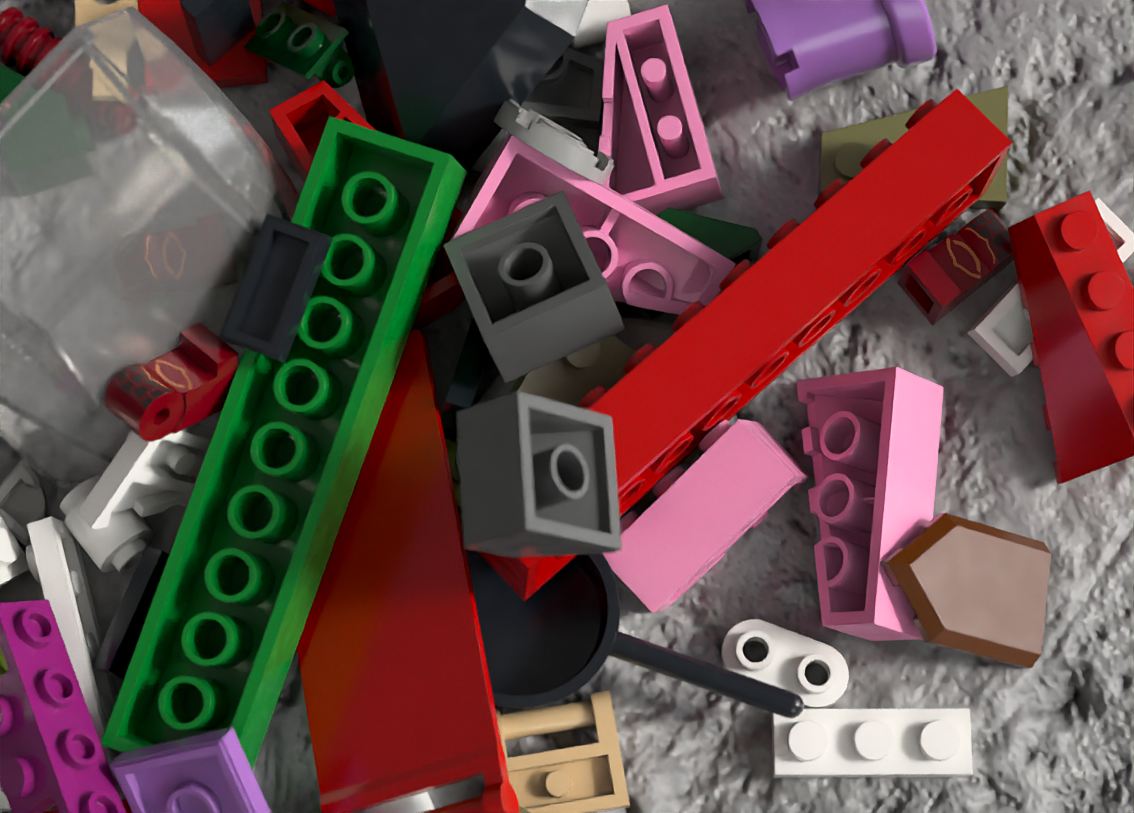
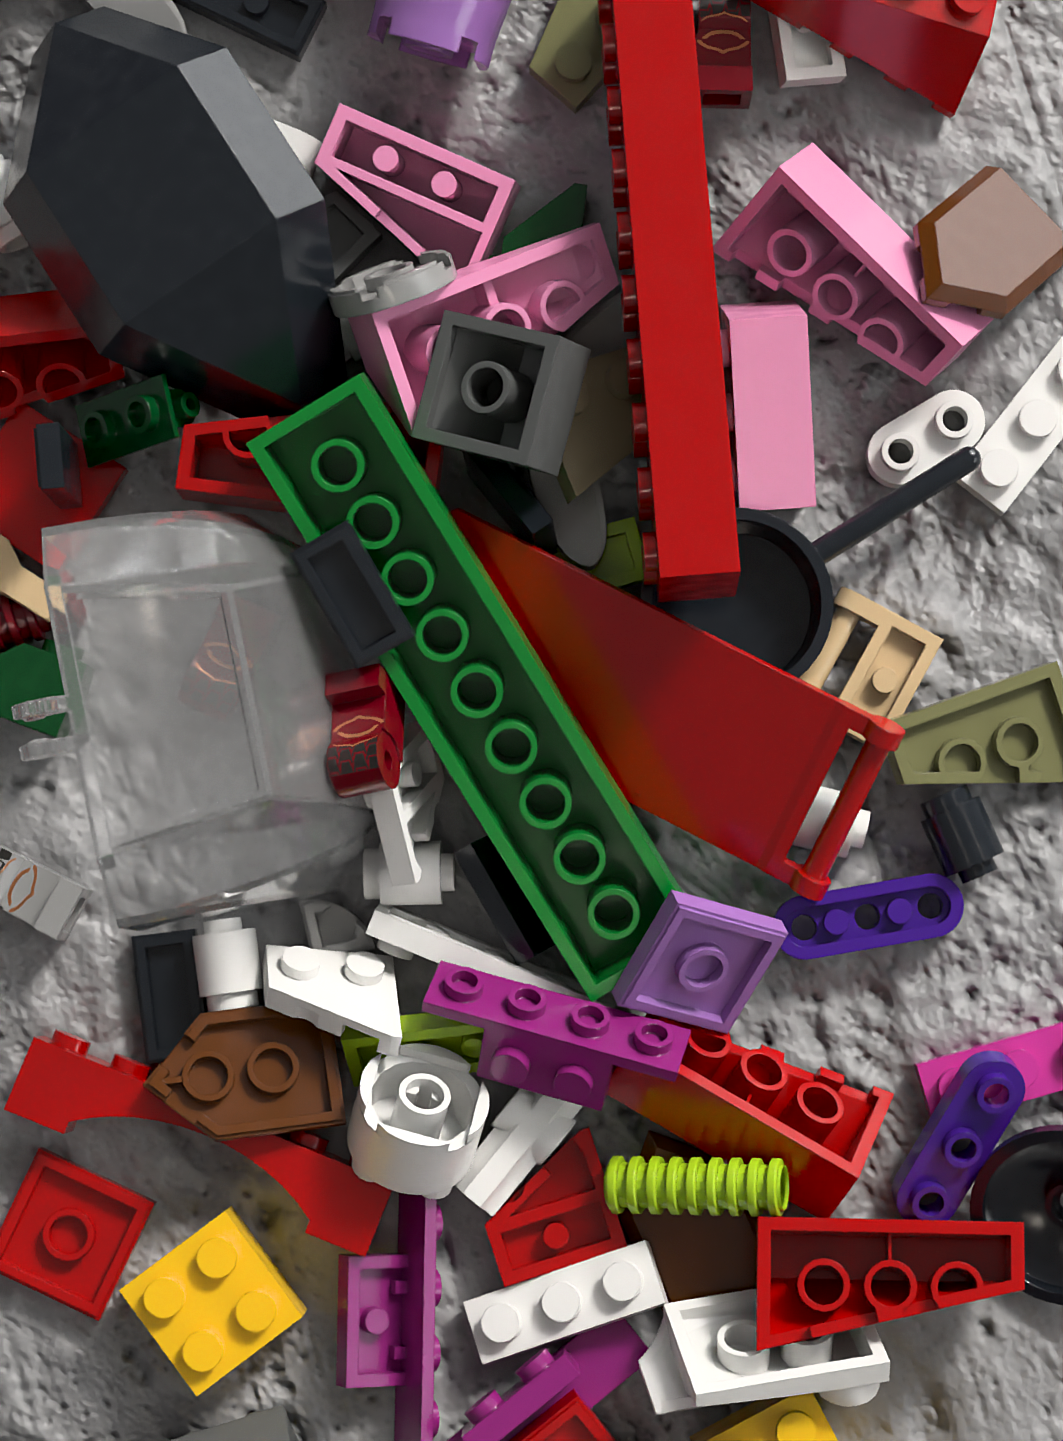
camera: 50 degrees left, 10 degrees up
(537, 478) = (682, 510): dark grey slope -> none

